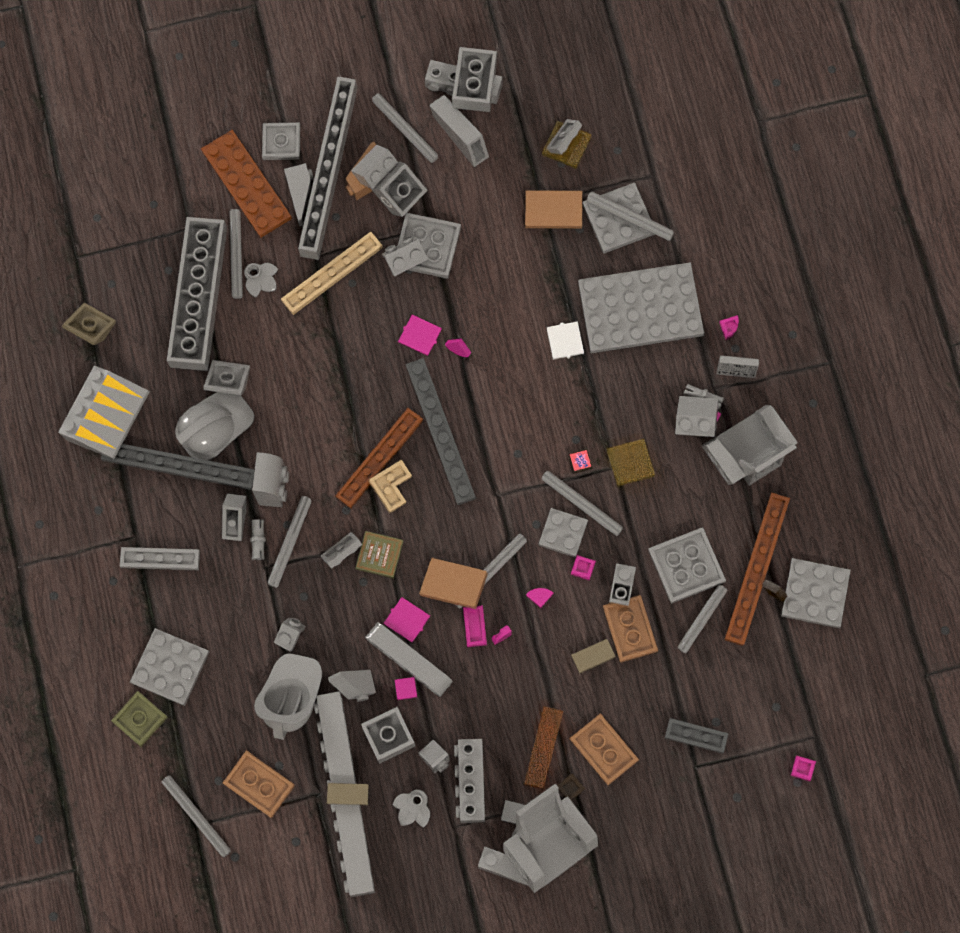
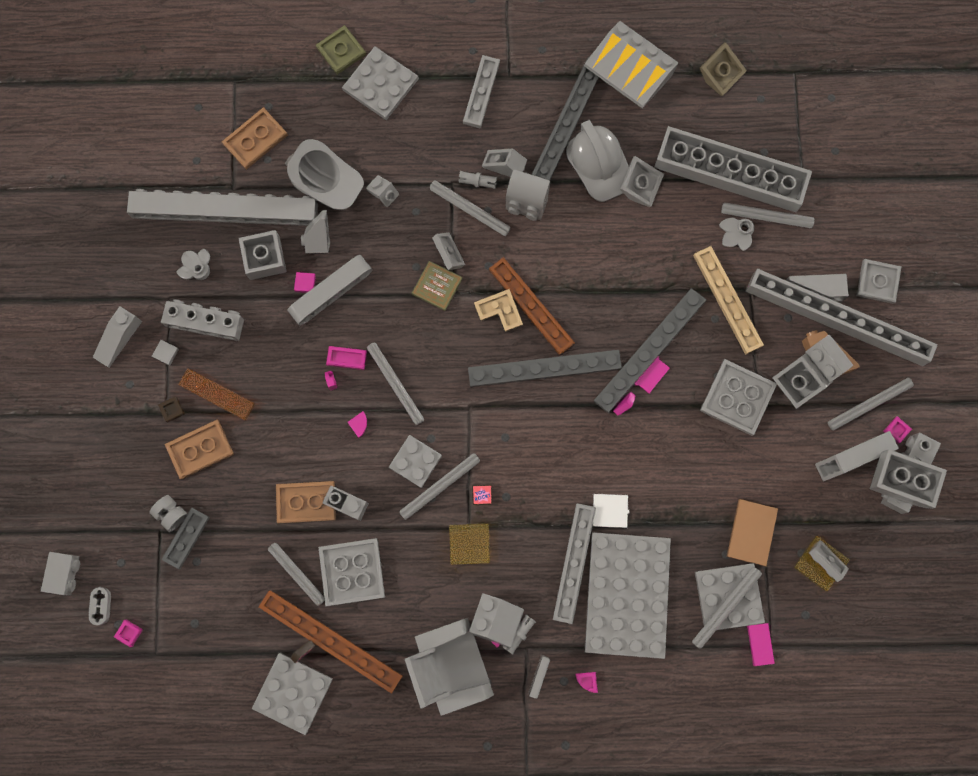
camera: 100 degrees right, 5 degrees up
(196, 816) = (241, 80): light grey axle -> none
(246, 183) = (839, 239): dark orange plate -> none
(347, 794) = (216, 206): dark tan tile -> none
(399, 335) = (650, 351): none -> dark grey plate
(404, 255) = (730, 370): light grey bracket -> none
(406, 620) = (369, 298): dark pink piece -> none
(423, 100) = (898, 429): none -> dark pink tile
(435, 757) = (231, 291): light grey slope -> none
(453, 583) = (389, 345): medium nougat tile -> none
(548, 838) = (122, 373): light grey piece -> none
(583, 567) = (376, 472): dark pink tile -> none
(593, 656) = (288, 460): dark tan tile -> none
(624, 361) = (574, 563): none -> light grey tile
(655, 182) = (760, 644): none -> dark pink tile
(679, 751) = (170, 519): none -> light grey wheel
(764, 850) = (60, 573): none -> light grey brick
(783, 799) = (95, 605): none -> light grey beam

